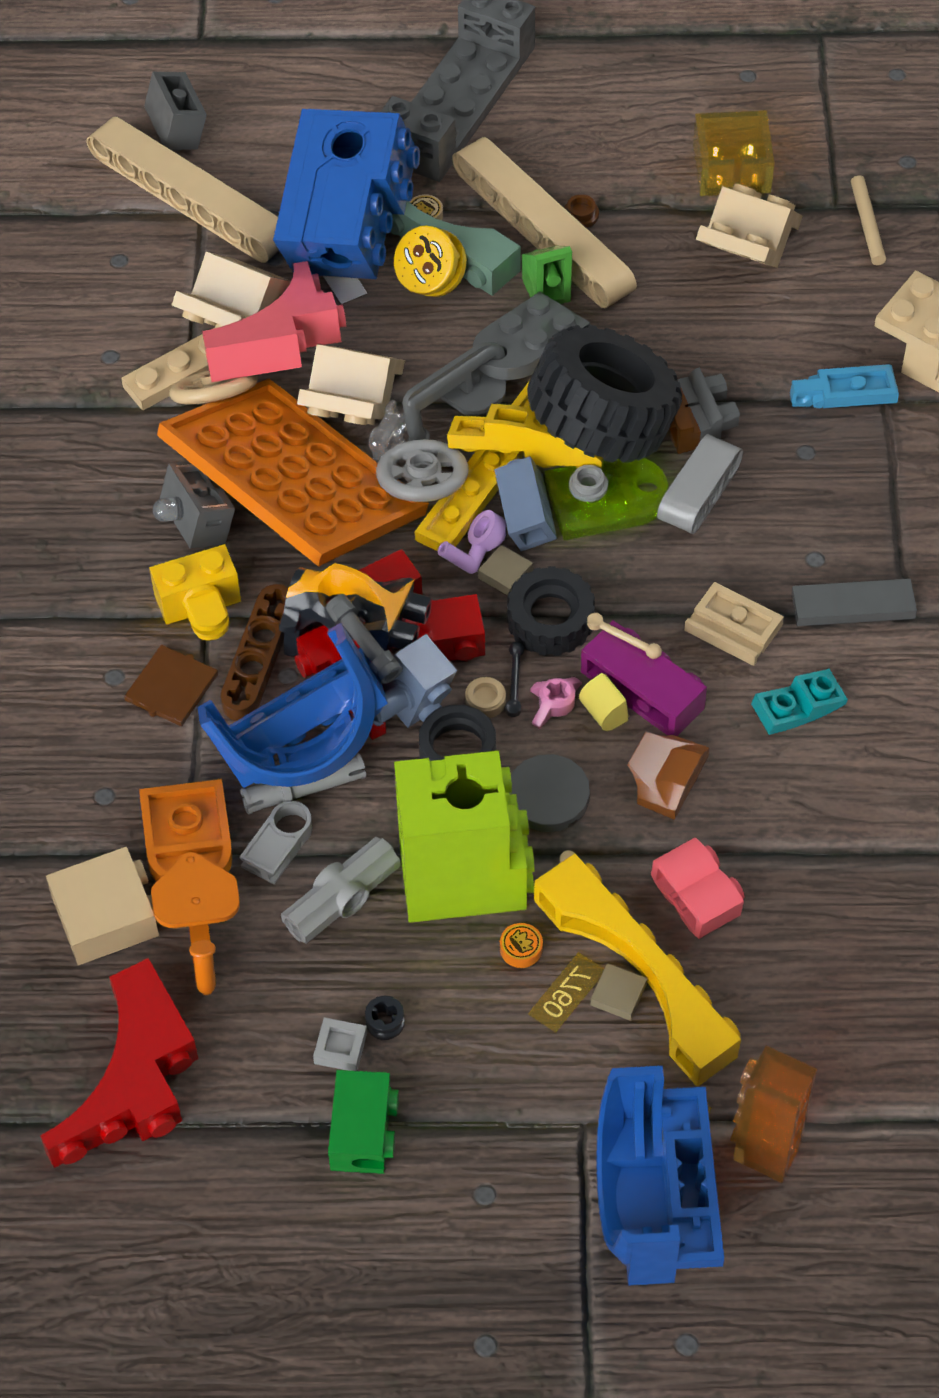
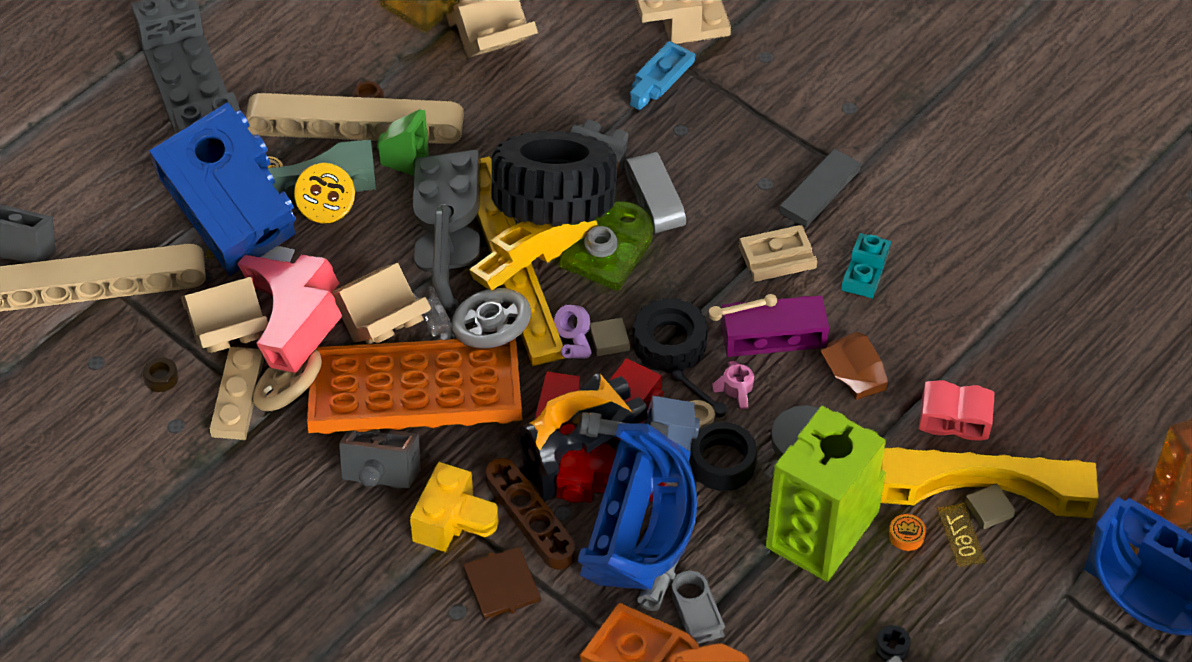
camera: 50 degrees left, 5 degrees down
(146, 307) = (160, 374): none -> dark brown tile
(340, 890) = (774, 598): light grey piece -> none
(525, 503) = (576, 284): sand blue brick -> none
(604, 702) = (771, 356): light yellow brick -> none

